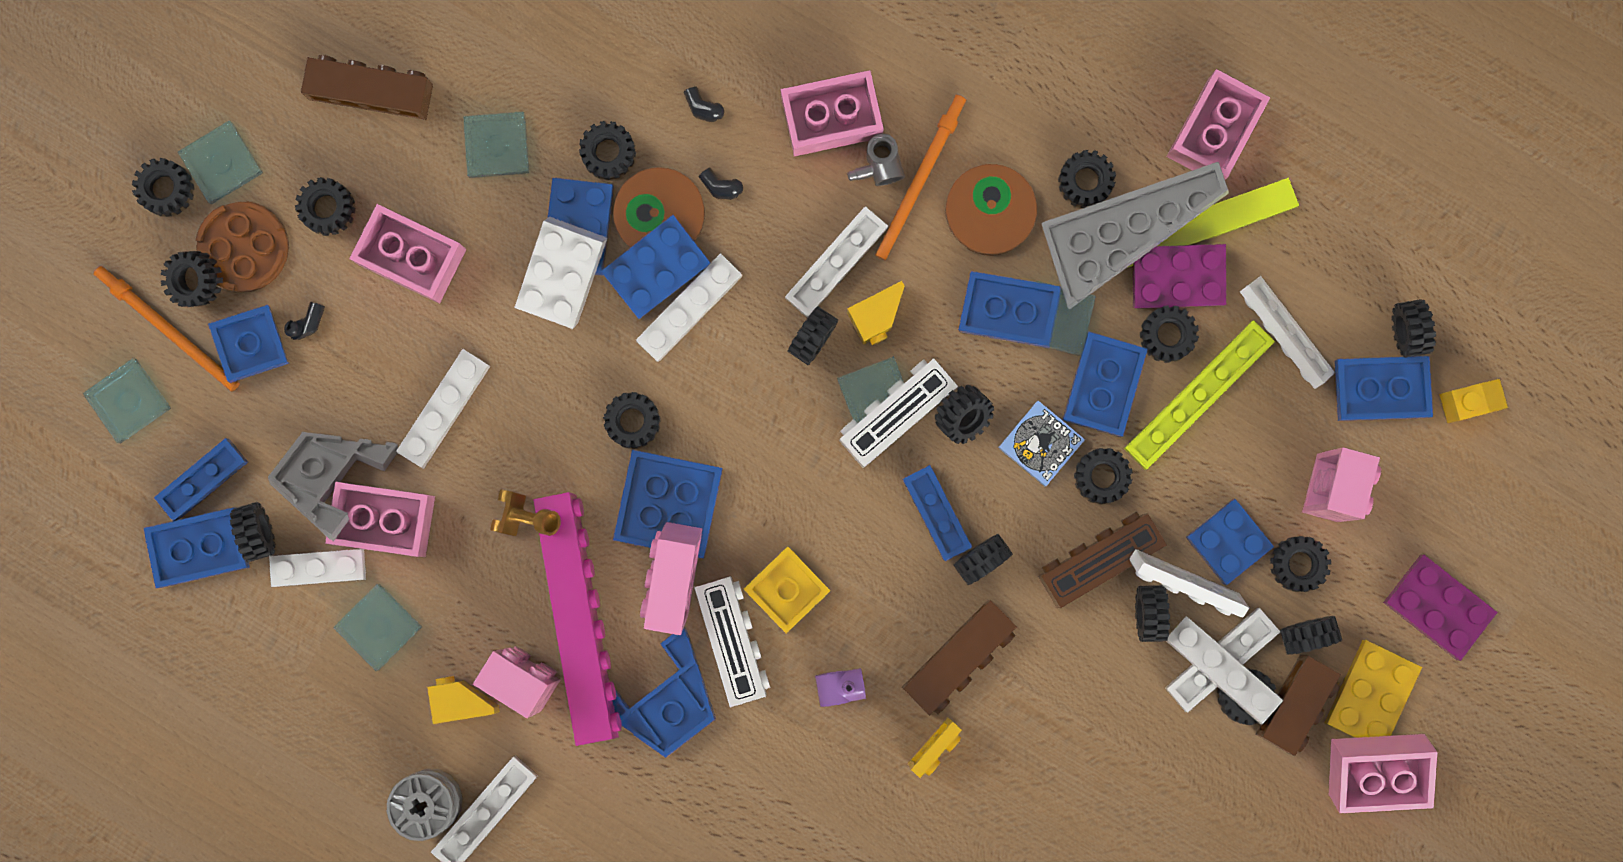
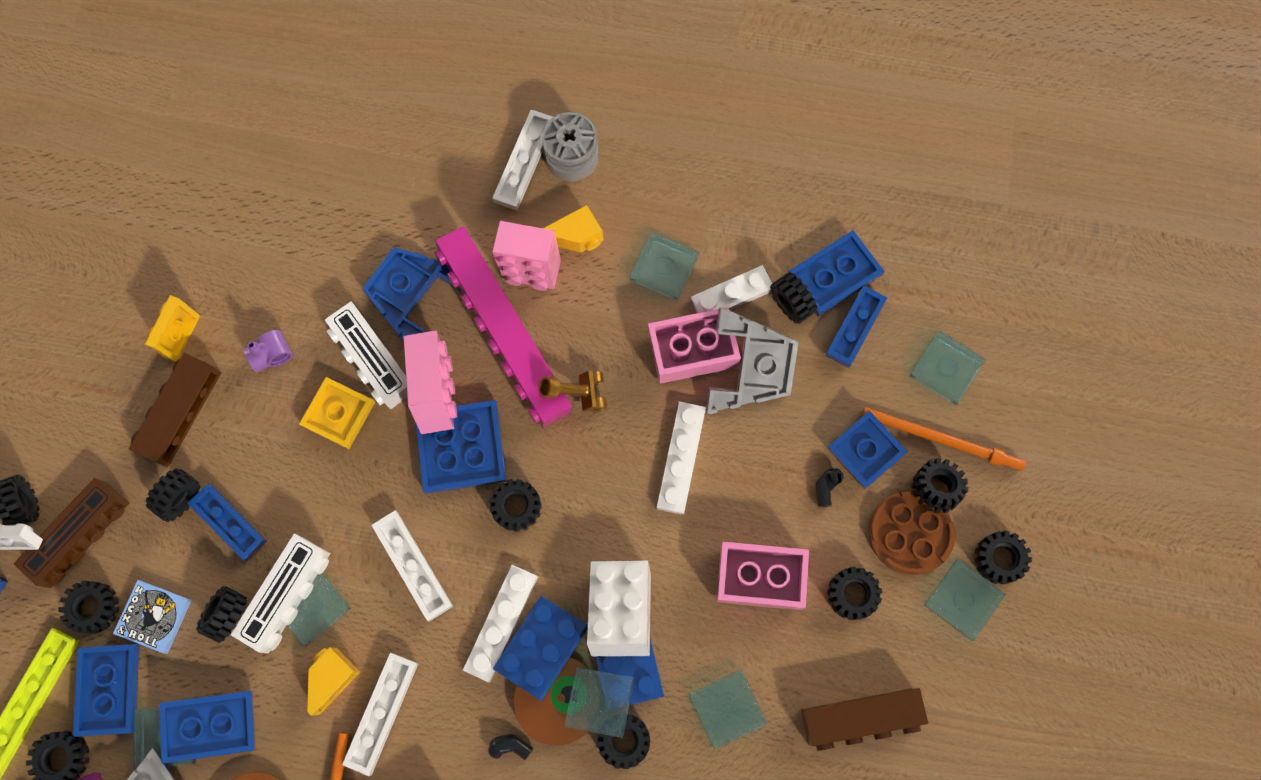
camera: 165 degrees right, 10 degrees down
(615, 191) = (599, 702): none -> clear light blue tile
(758, 397) = (412, 566): none -> white plate
(812, 335) = (377, 635): black tyre -> none

